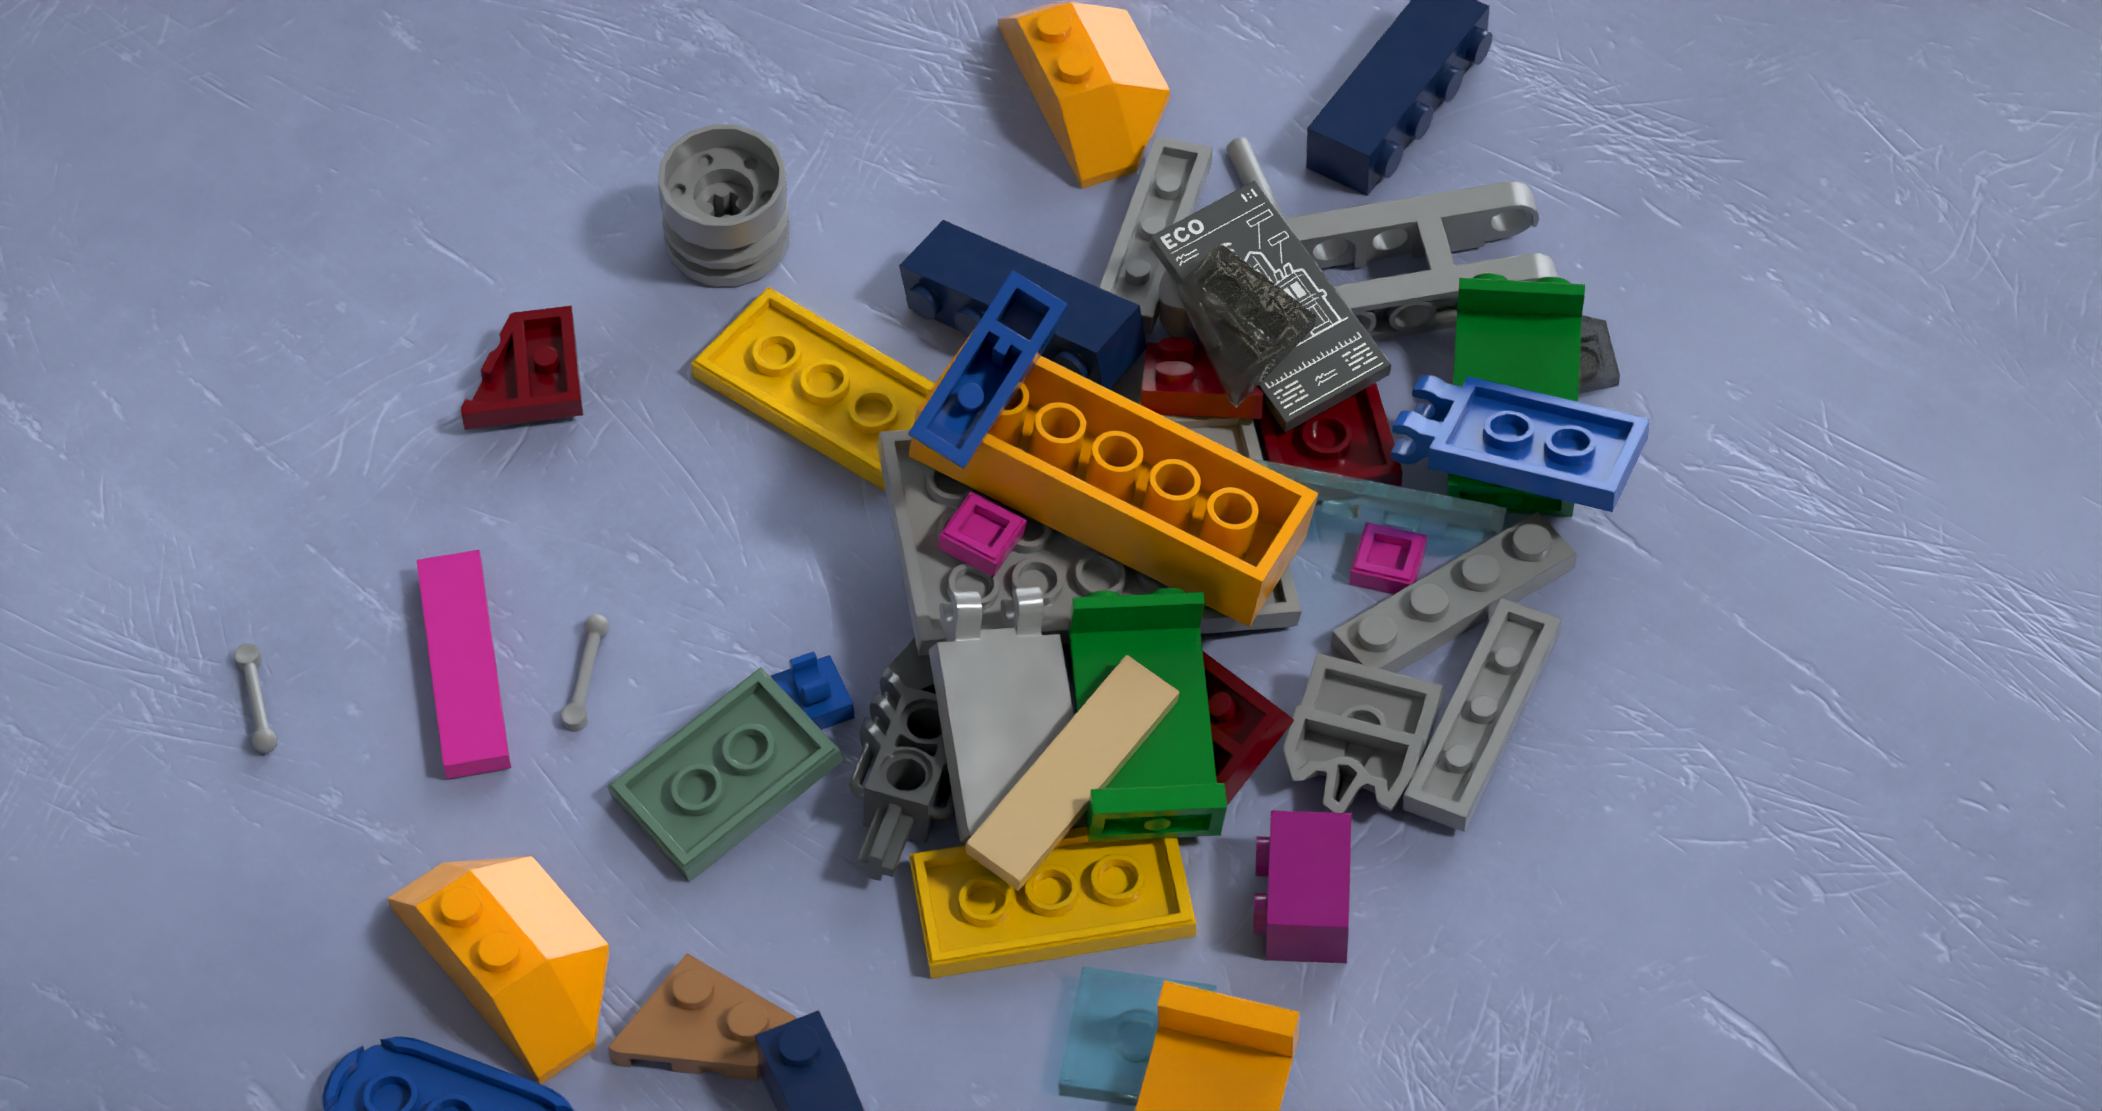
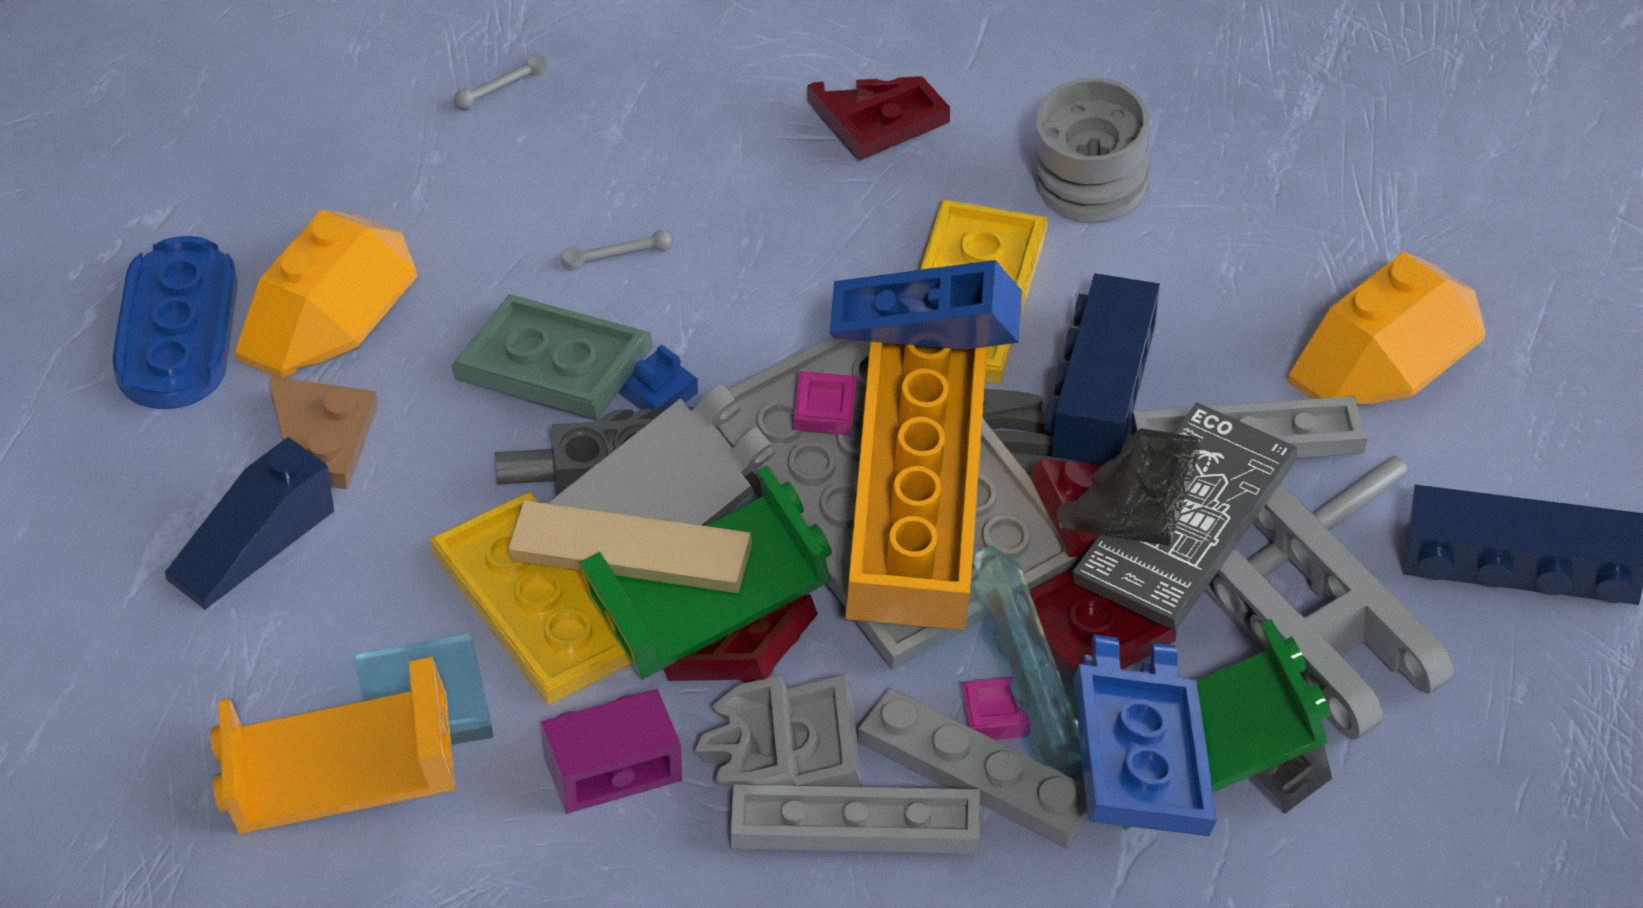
camera: 65 degrees right, 5 degrees down
(463, 664) = (586, 177): dark pink tile -> none

